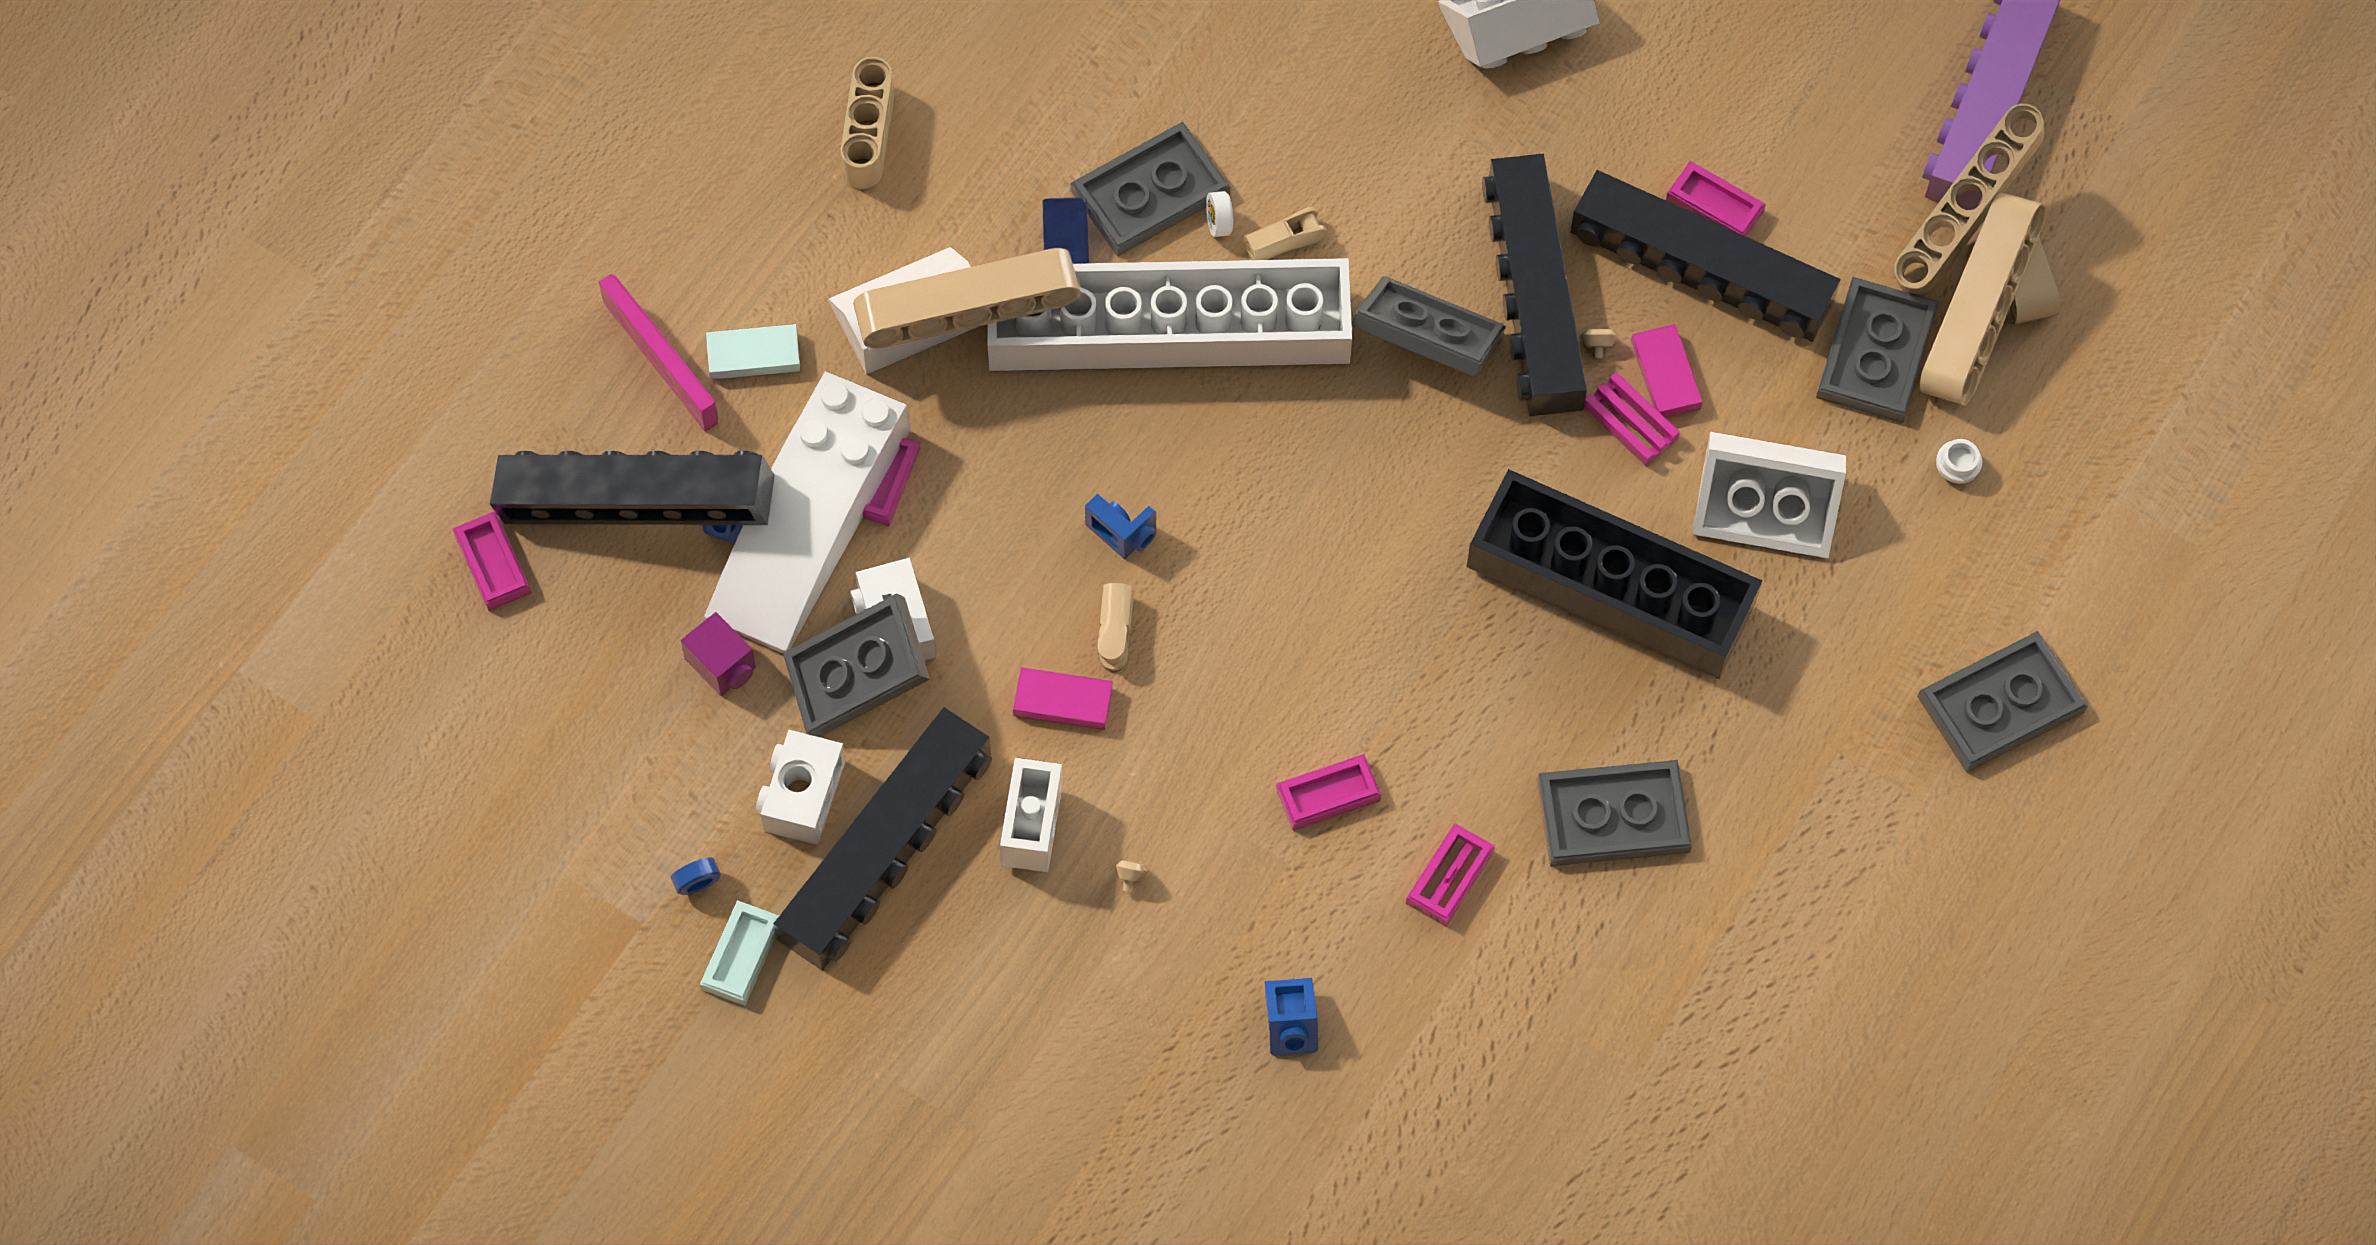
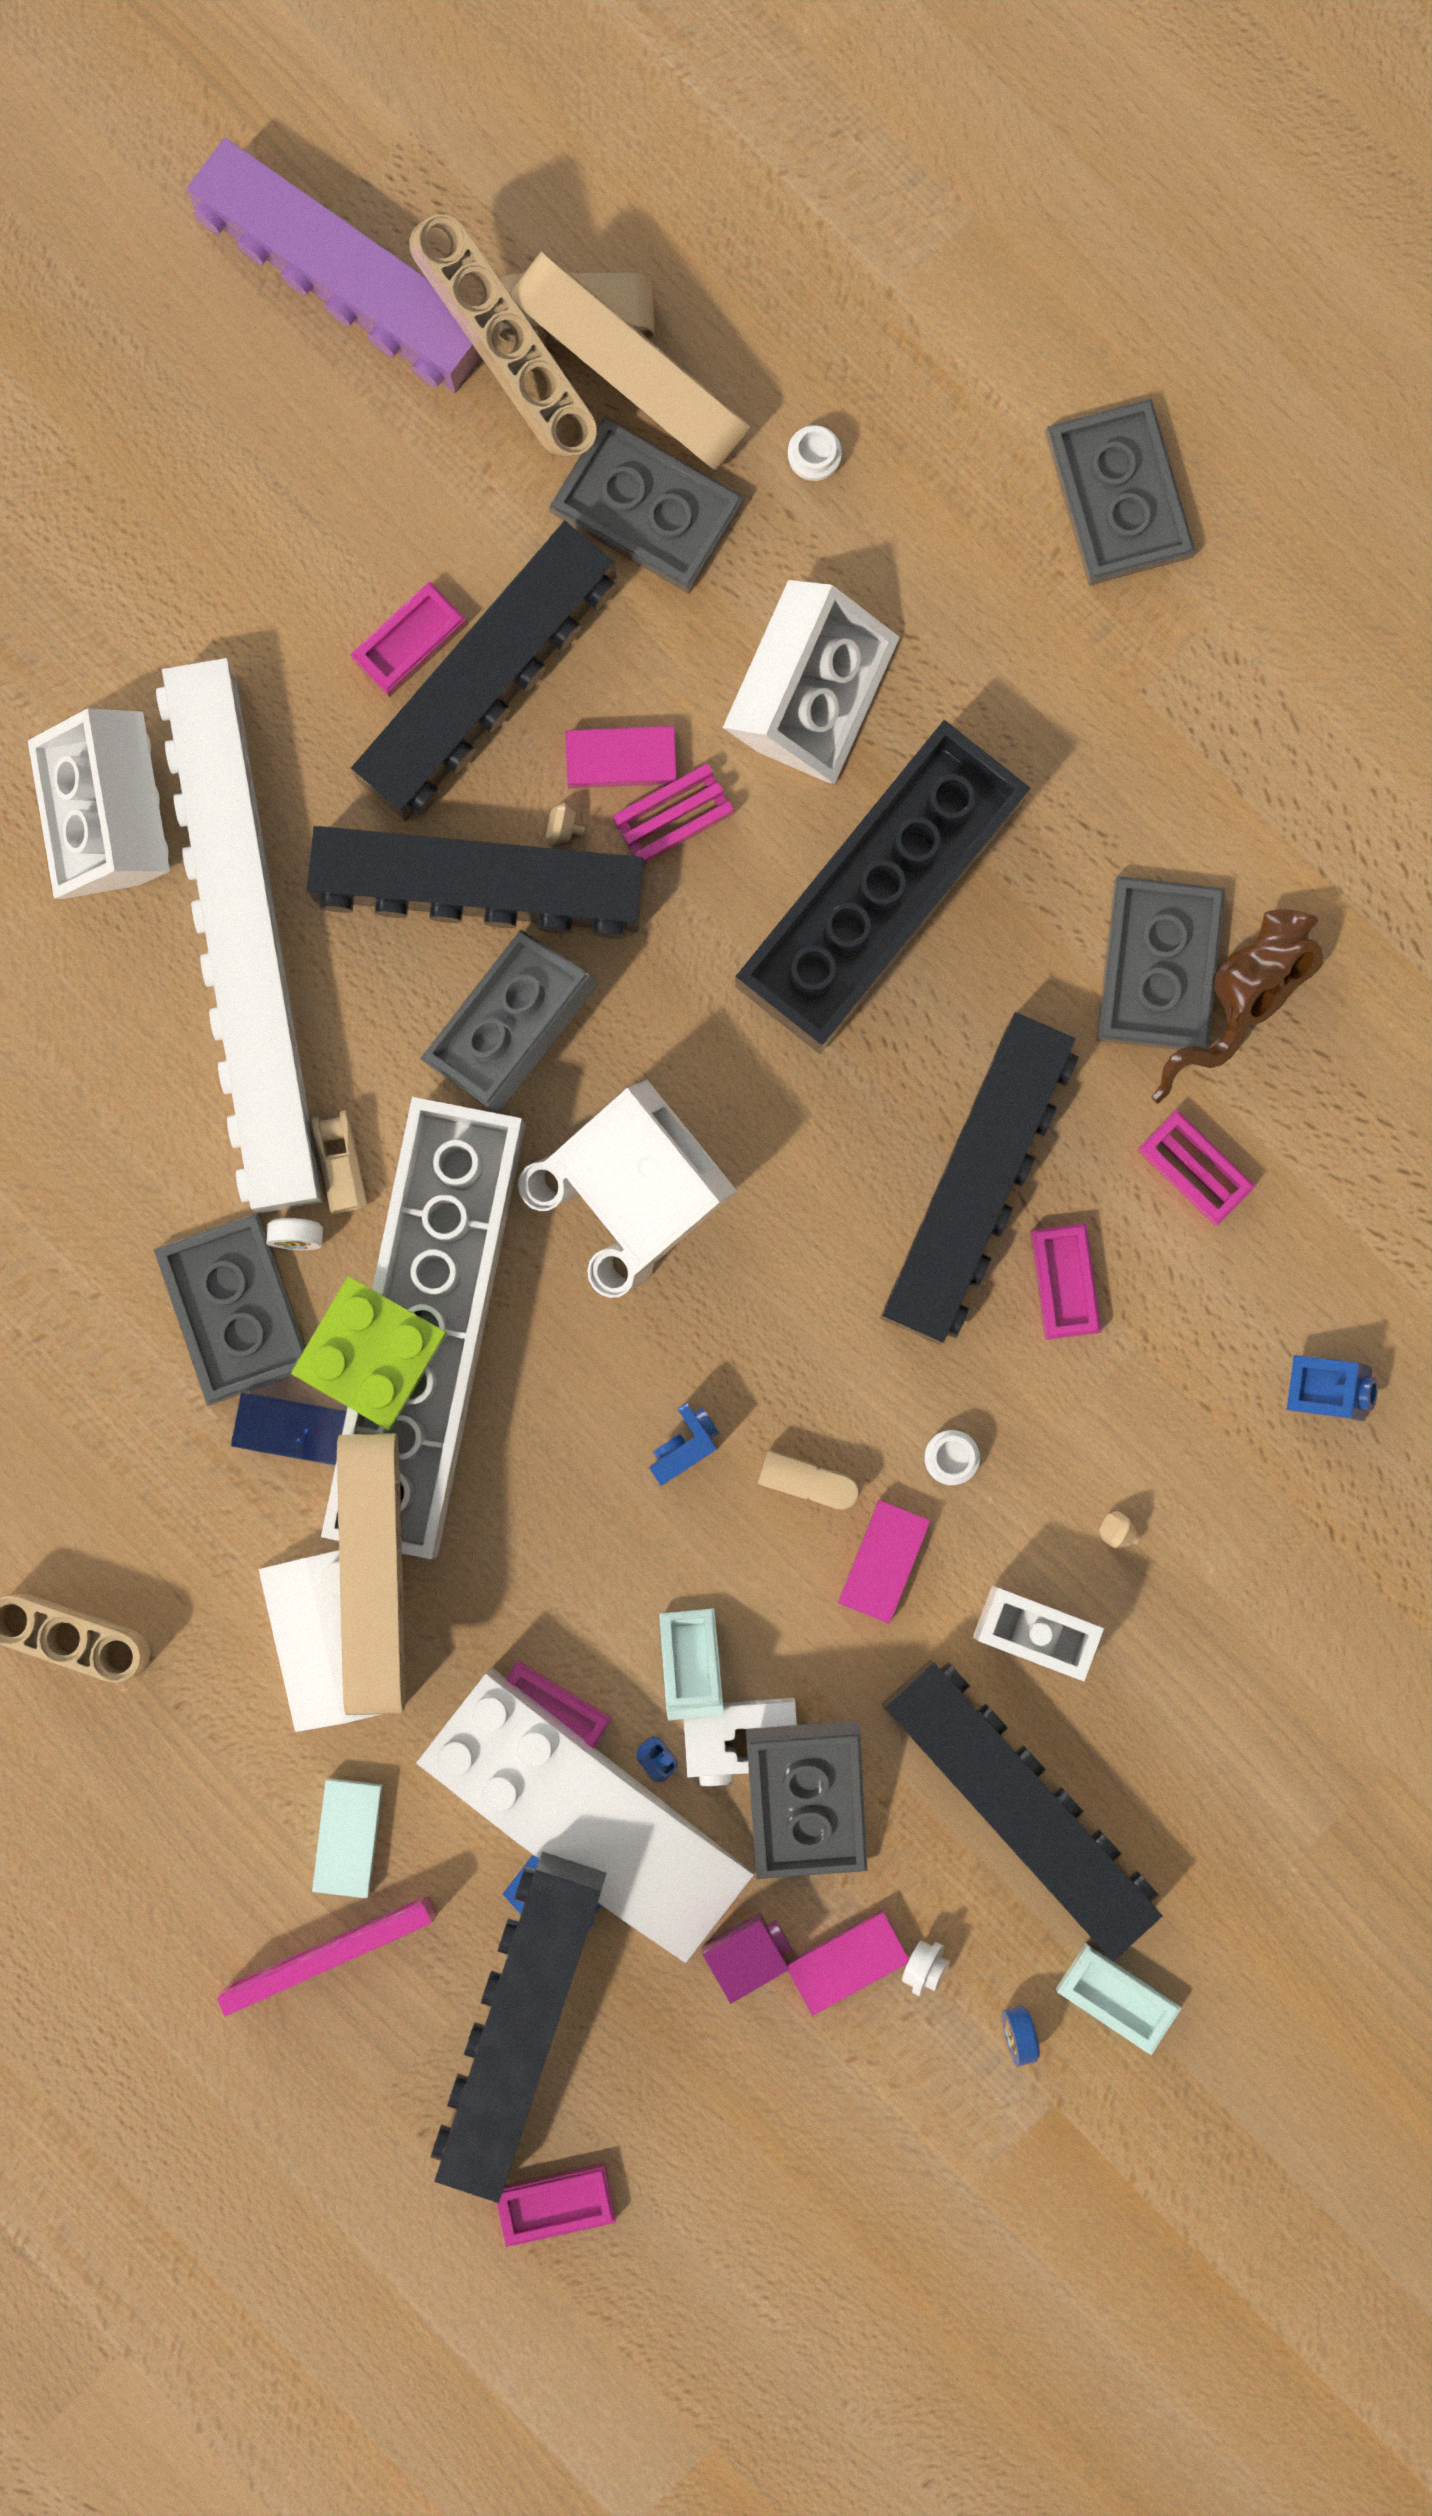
camera: 75 degrees left, 20 degrees up
(728, 736) = (847, 1962): none -> dark pink tile
(736, 792) = (926, 1968): none -> white plate
(805, 812) = (915, 1864): white brick -> none
(863, 558) = (656, 1759): none -> blue rock
(946, 562) = (691, 1664): none -> light aqua tile
(1138, 266) = (369, 1353): none -> lime plate
(1160, 731) = (952, 1457): none -> white plate
(1324, 438) = (638, 1177): none -> white piece
(1394, 701) = (978, 1180): none -> black brick
(1444, 128) = (241, 937): none -> white brick
(1609, 879) = (1254, 986): none -> reddish brown animal

